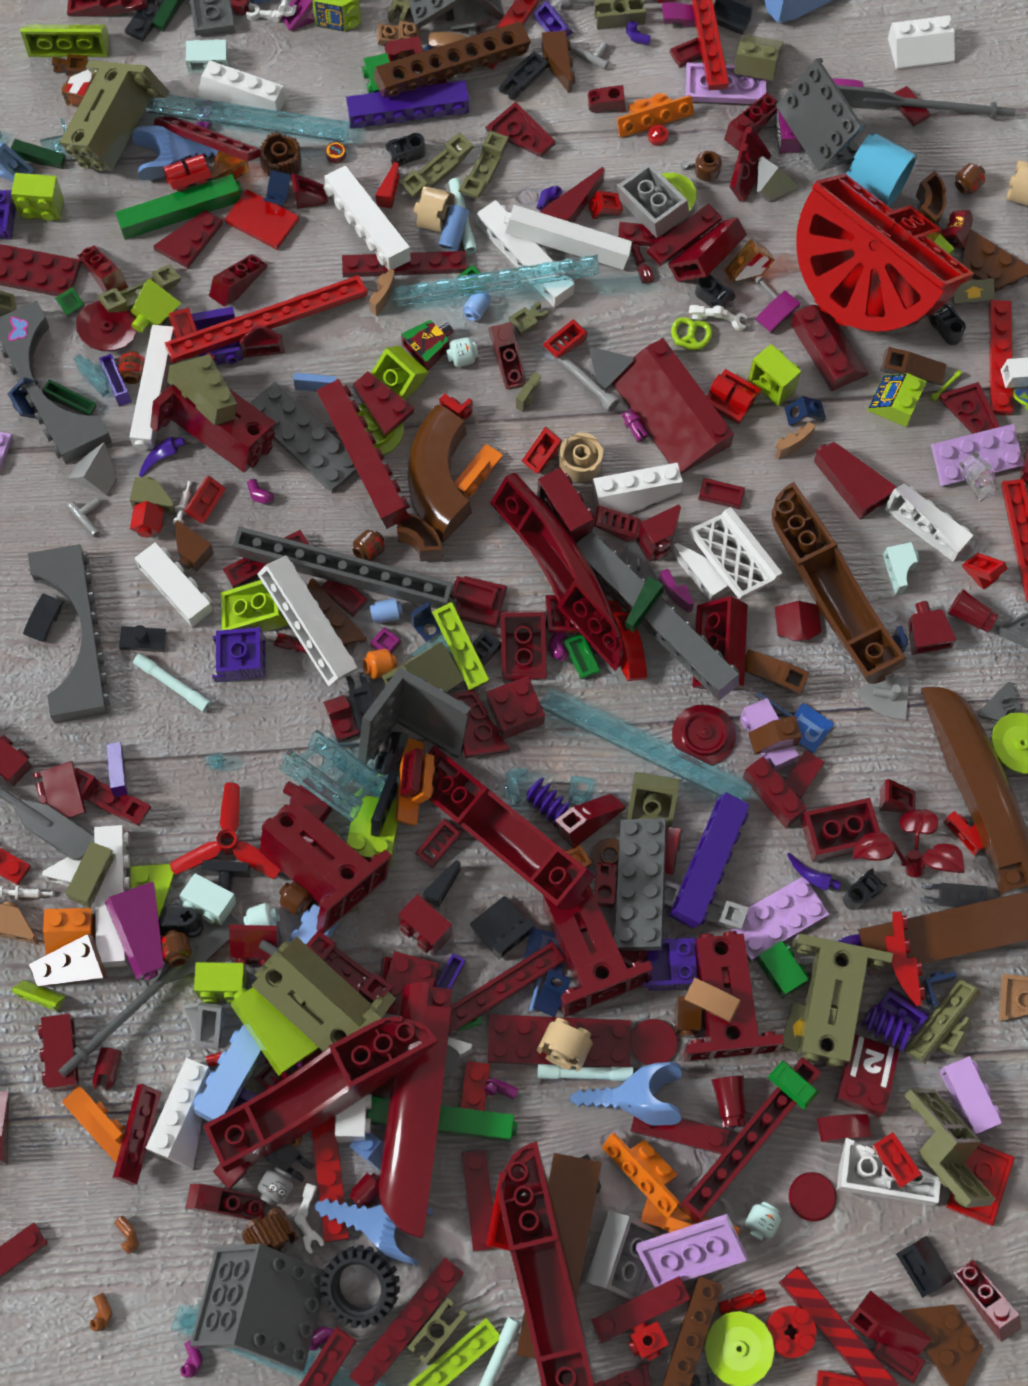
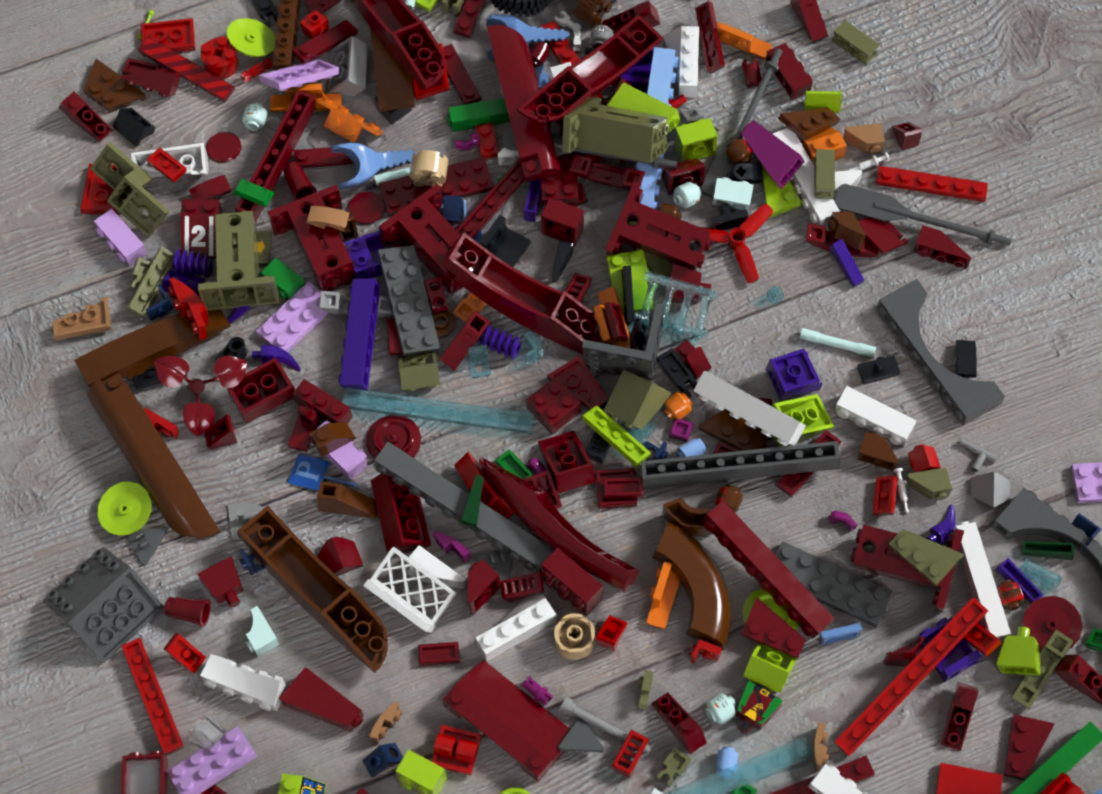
camera: 165 degrees right, 5 degrees down
(97, 804) = (846, 227): none -> reddish brown slope
(794, 777) = (308, 415): none -> dark red plate

